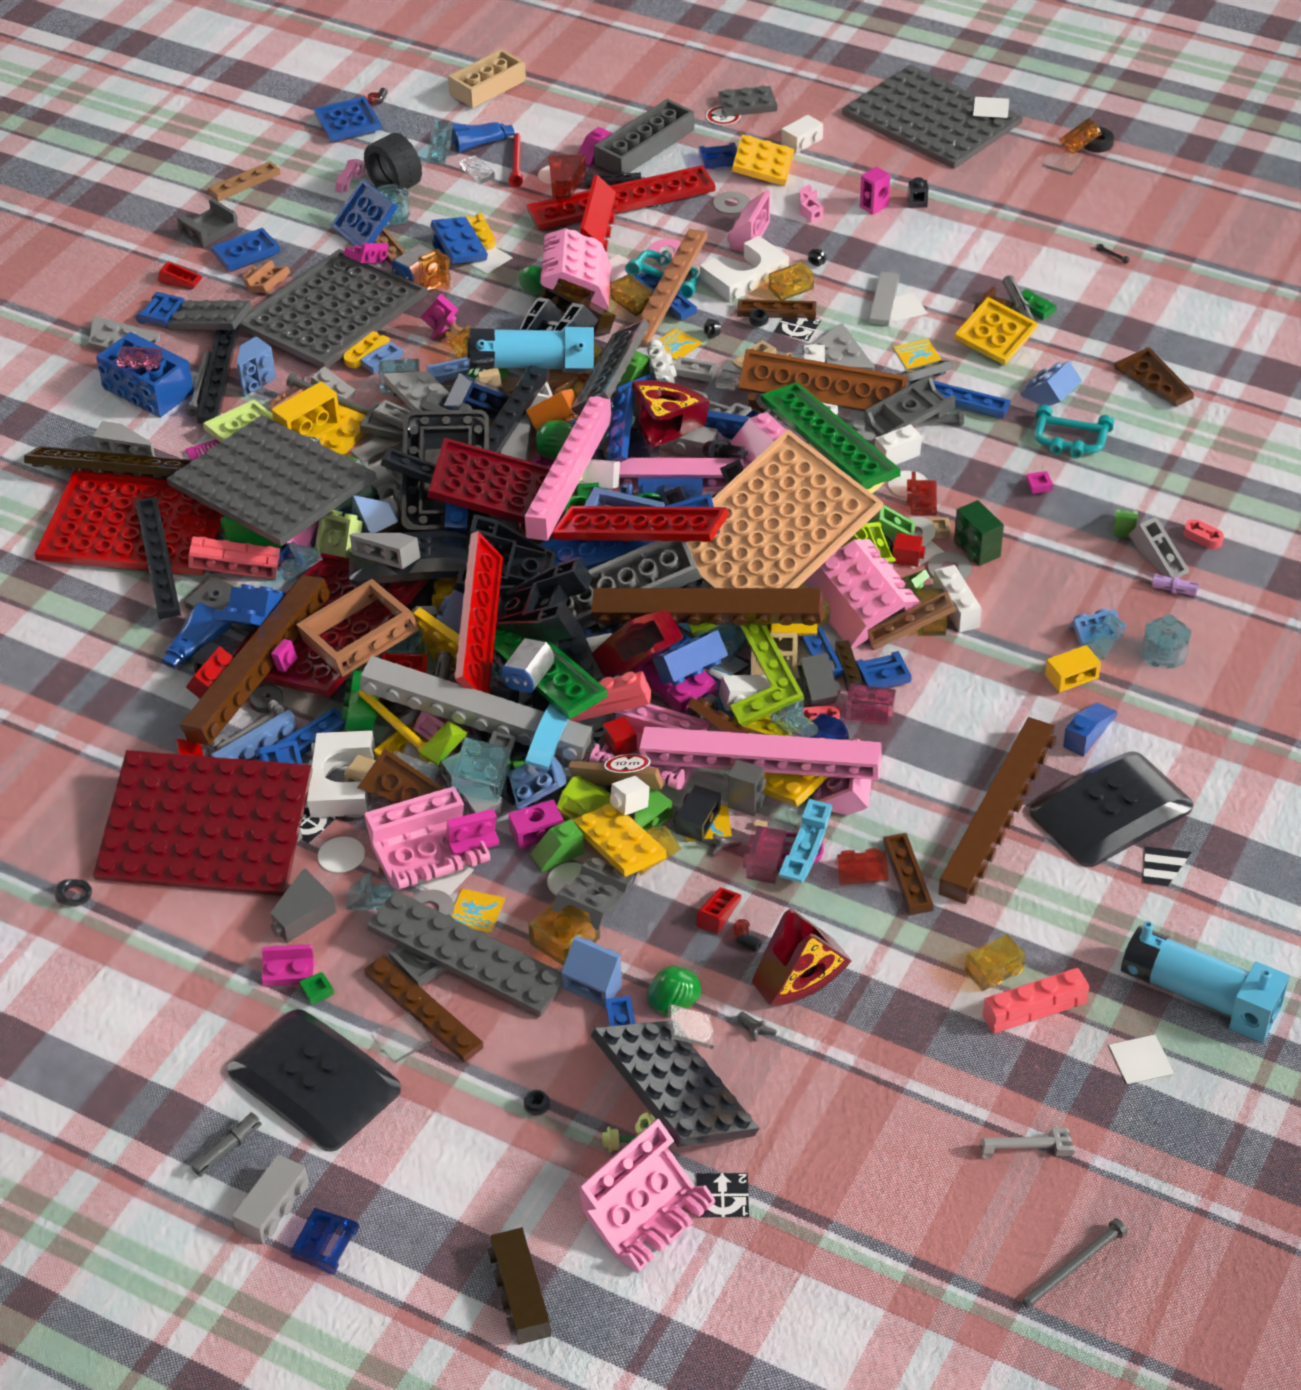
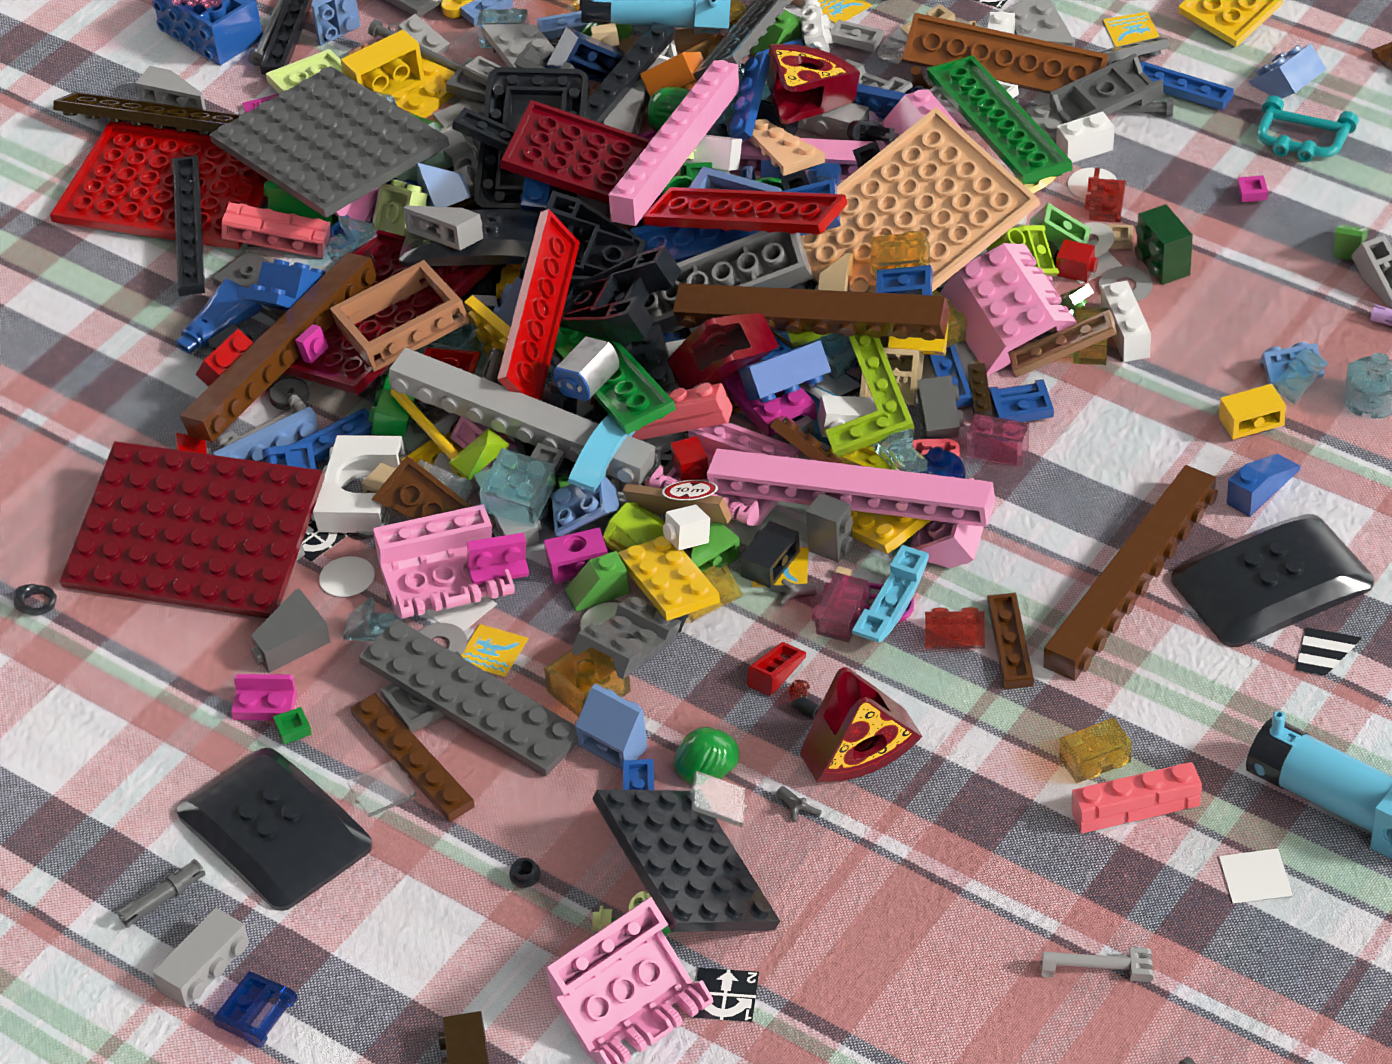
camera: 10 degrees right, 0 degrees up
(656, 468) = (784, 149): none -> light nougat wing
(722, 574) = (836, 275): none -> tan slope
(773, 554) = (899, 251): none -> clear yellow brick
(780, 576) = (905, 280): none -> blue plate

